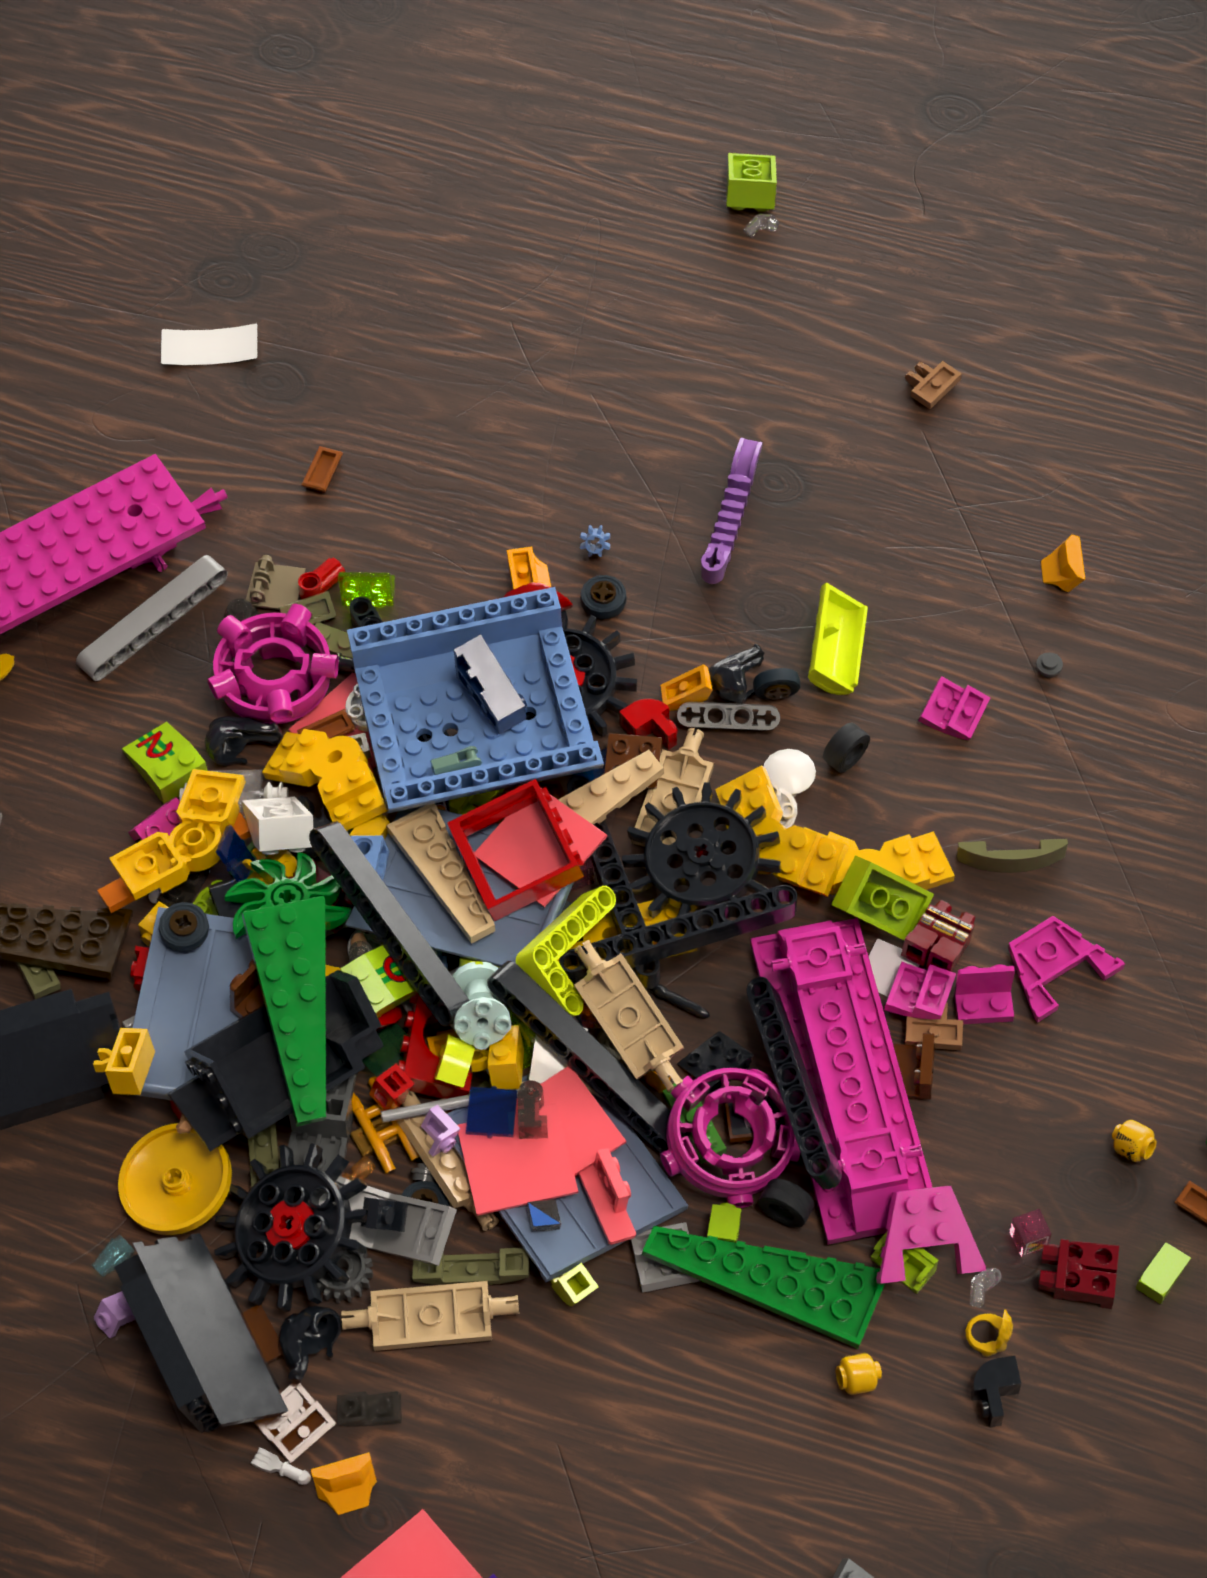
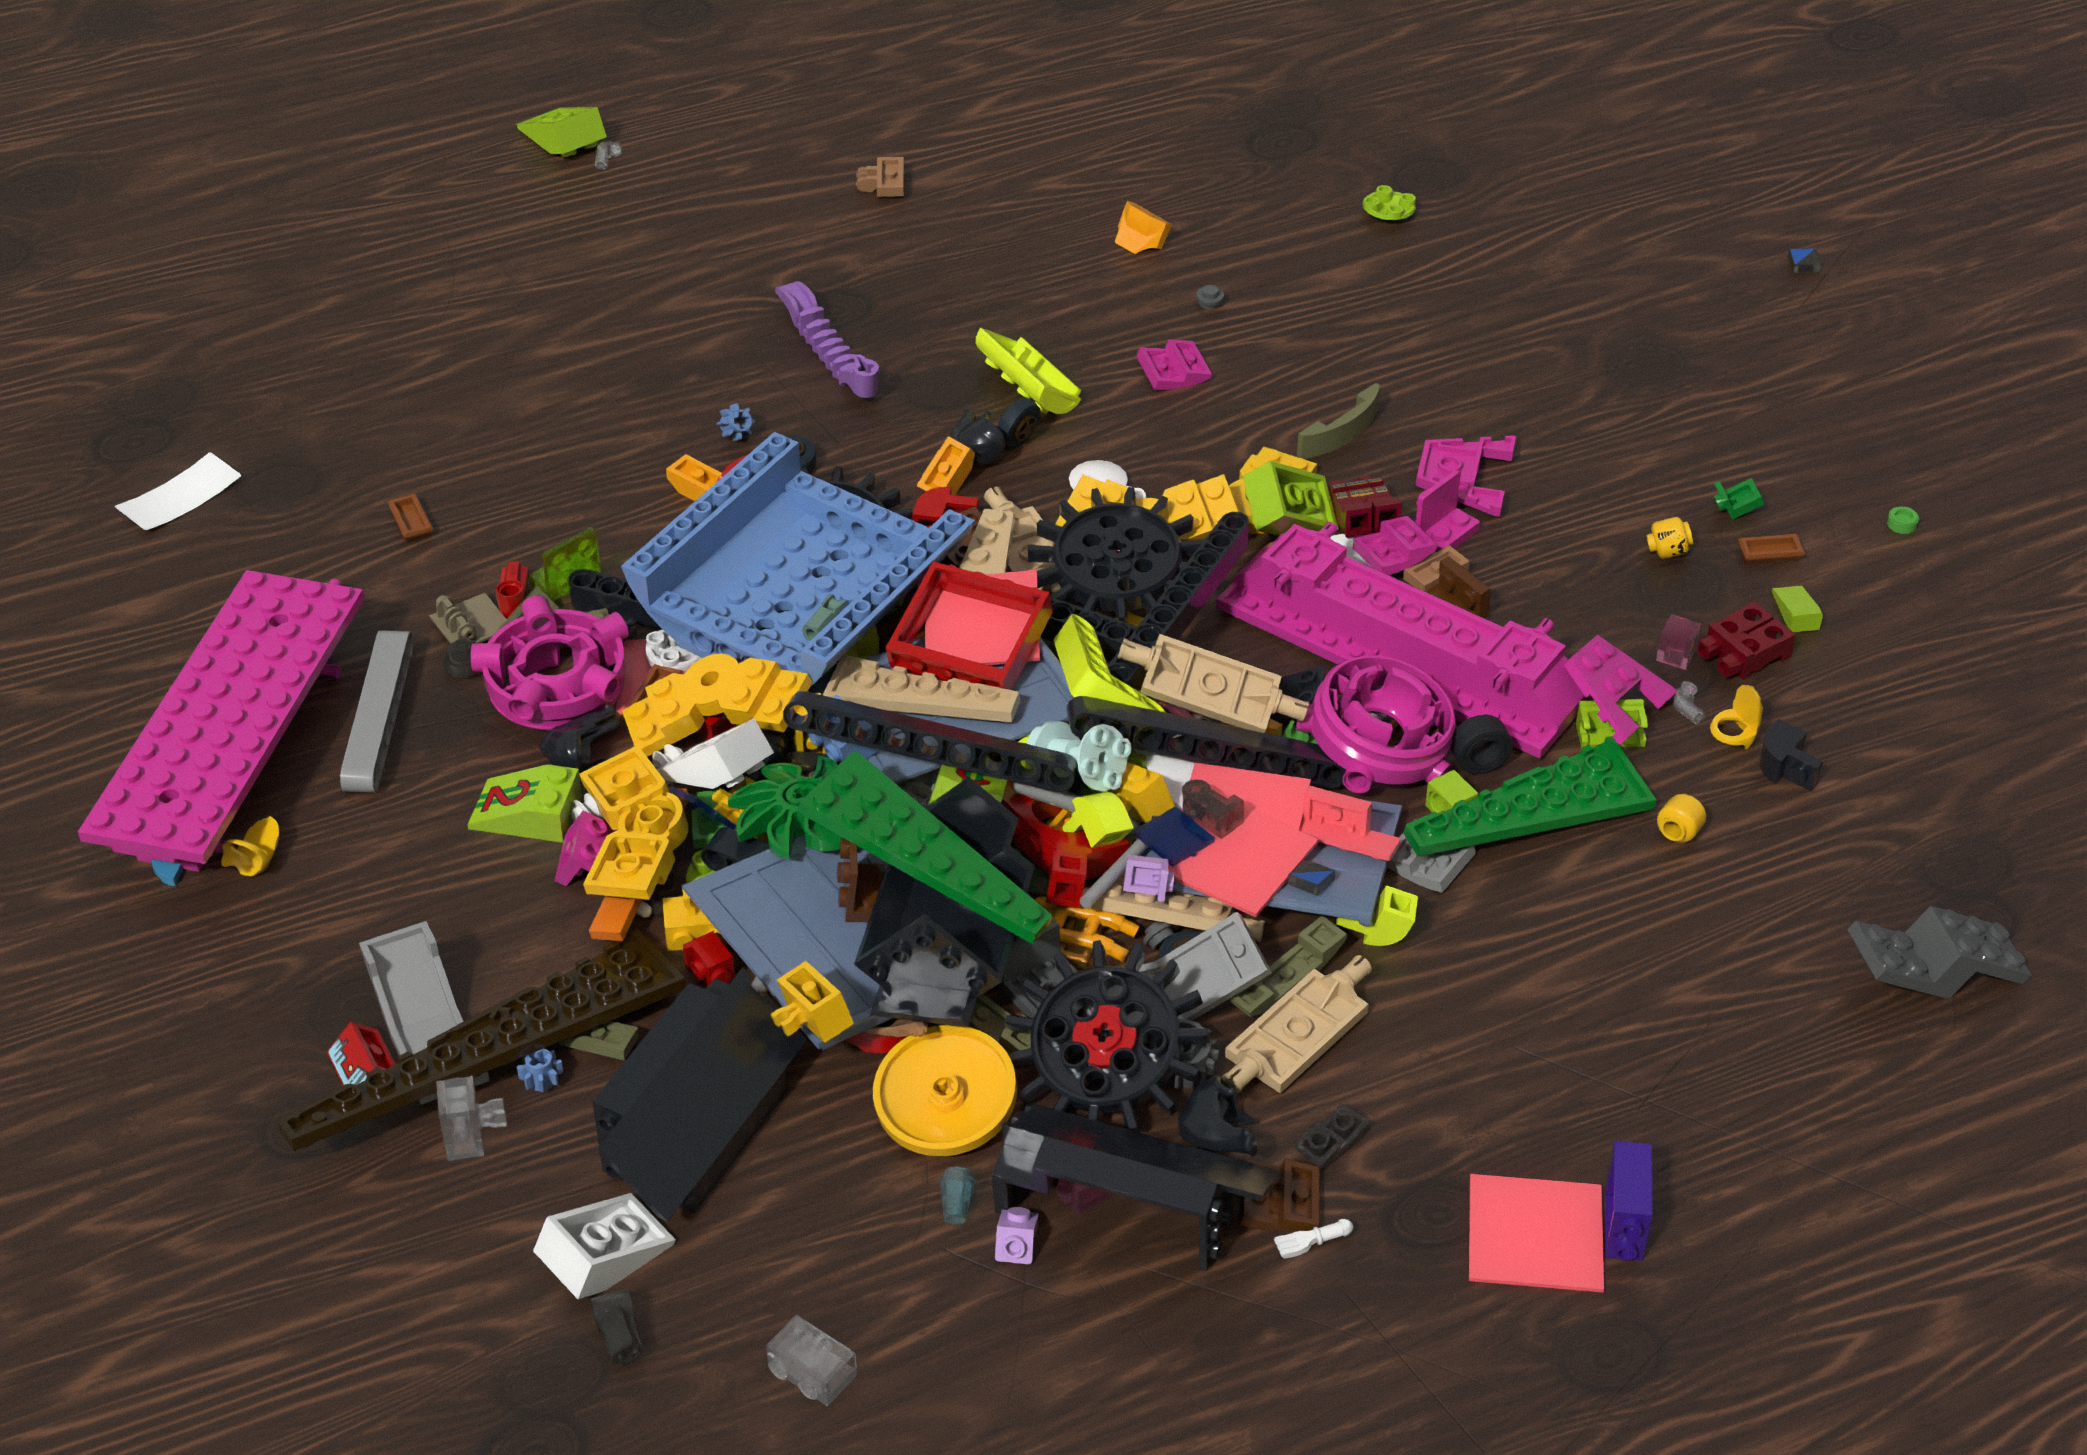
camera: 45 degrees left, 15 degrees down
(189, 935) = (730, 879): black wheel -> none
(345, 1483) = (1385, 1201): light orange slope -> none
(385, 1214) = (1192, 961): black brick -> none
(489, 685) = (791, 541): wedge -> none
(728, 715) = (1001, 469): light grey beam -> none
(794, 1083) = (1365, 637): black beam -> none
(846, 747) = (1130, 429): black tyre -> none

